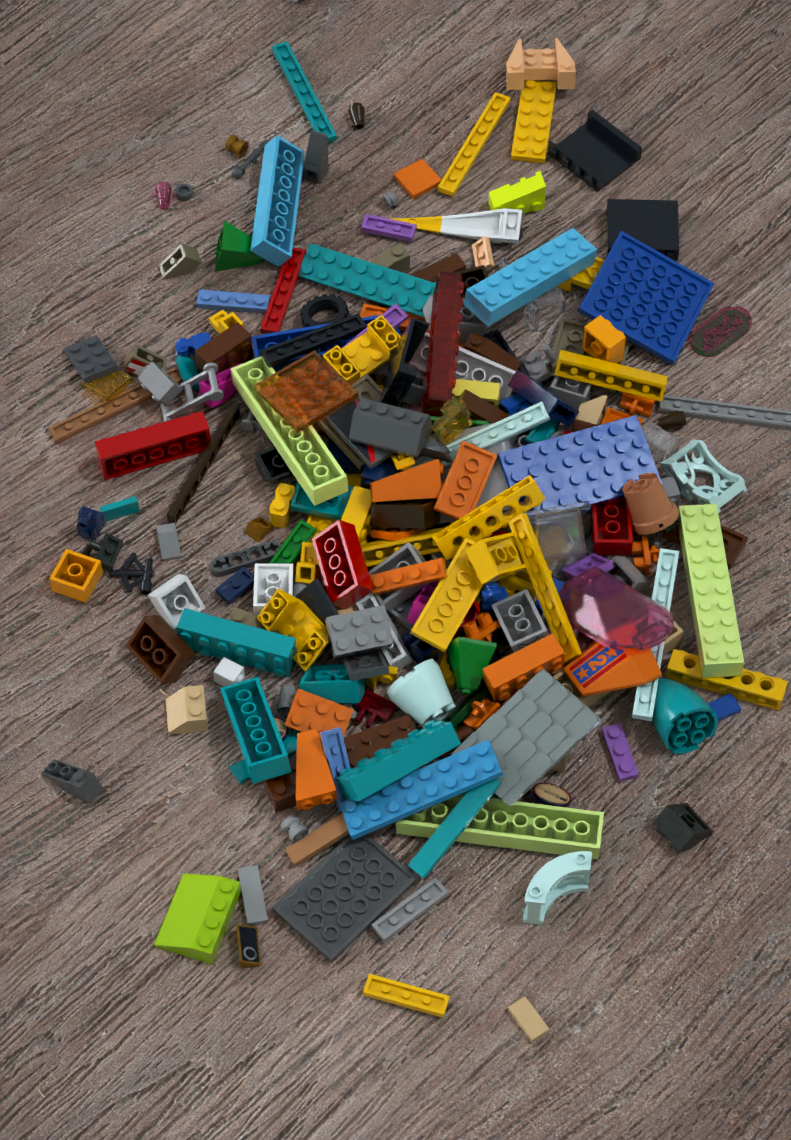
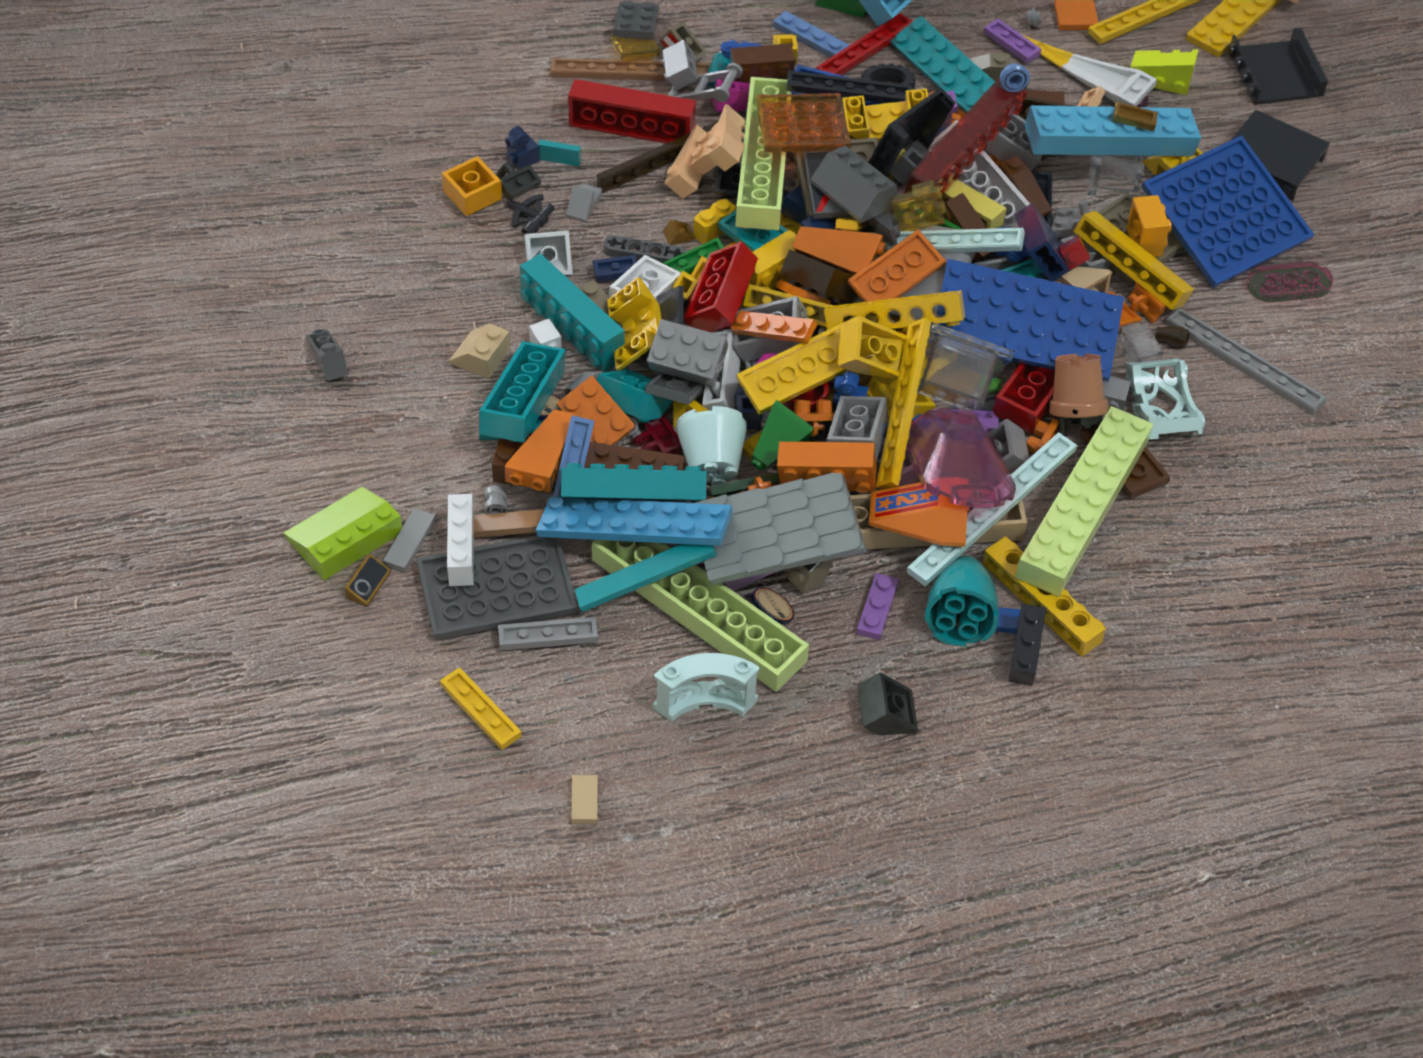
camera: 30 degrees right, 5 degrees down
(160, 649) = (494, 282): reddish brown brick -> none
(240, 448) = (705, 151): none -> light nougat wedge
(298, 875) = (460, 540): none -> white brick
(453, 277) = (1014, 78): none -> medium blue brick
(544, 258) = (1135, 116): none -> pearl gold tile
(571, 393) = (1074, 252): none -> red brick
(744, 724) = (1027, 644): none -> black brick

